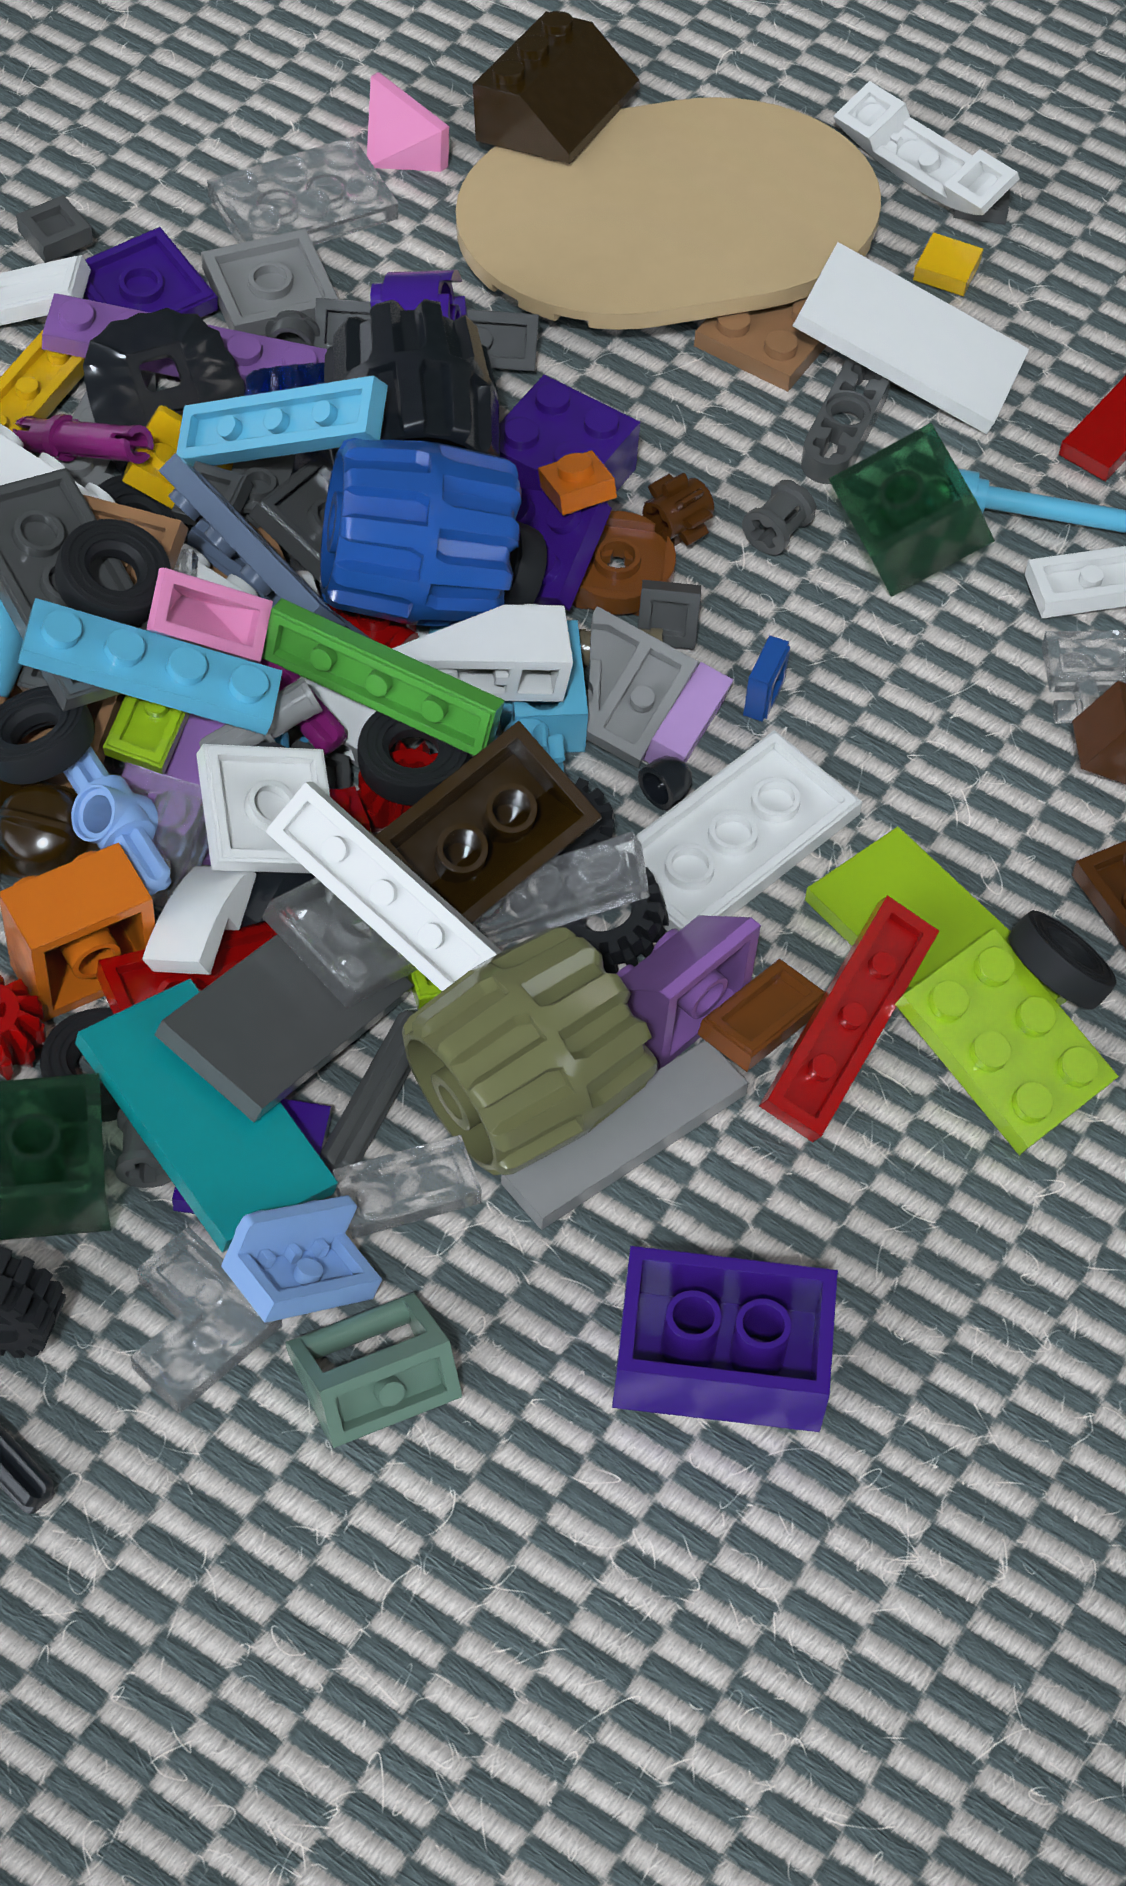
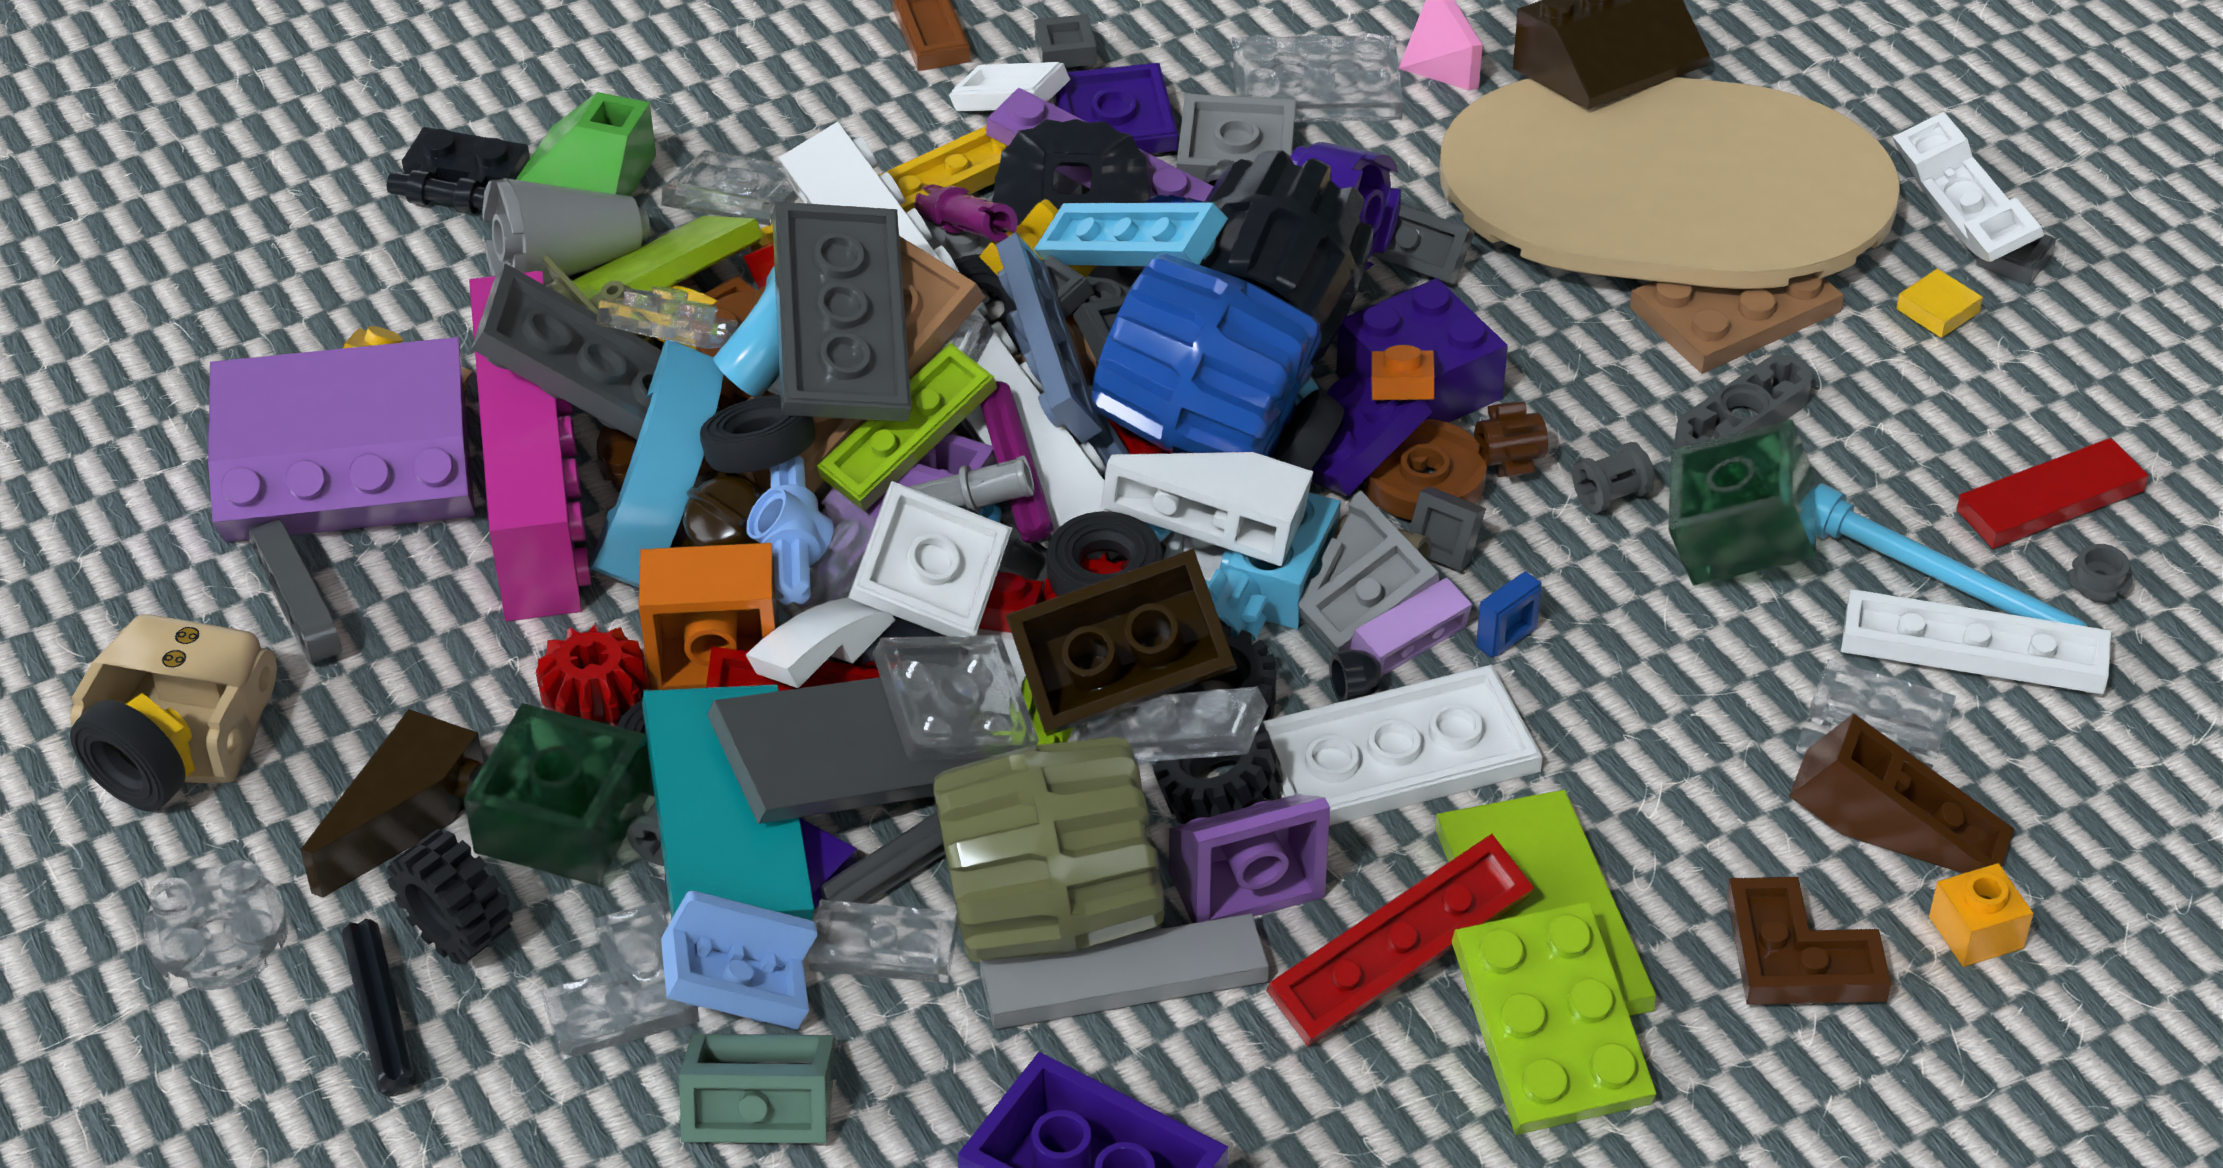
camera: 30 degrees right, 10 degrees down
(115, 540) = (875, 338): black tyre -> none
(150, 666) = (877, 398): medium azure plate -> none
(209, 615) = (954, 370): bright pink slope -> none
(379, 887) = (985, 650): white plate -> none
(381, 678) = (1093, 476): bright green tile -> none
(761, 1015) = (1313, 910): dark orange tile -> none
(911, 338) = (1847, 353): white tile -> none
(1062, 959) = (1653, 960): black tyre -> none

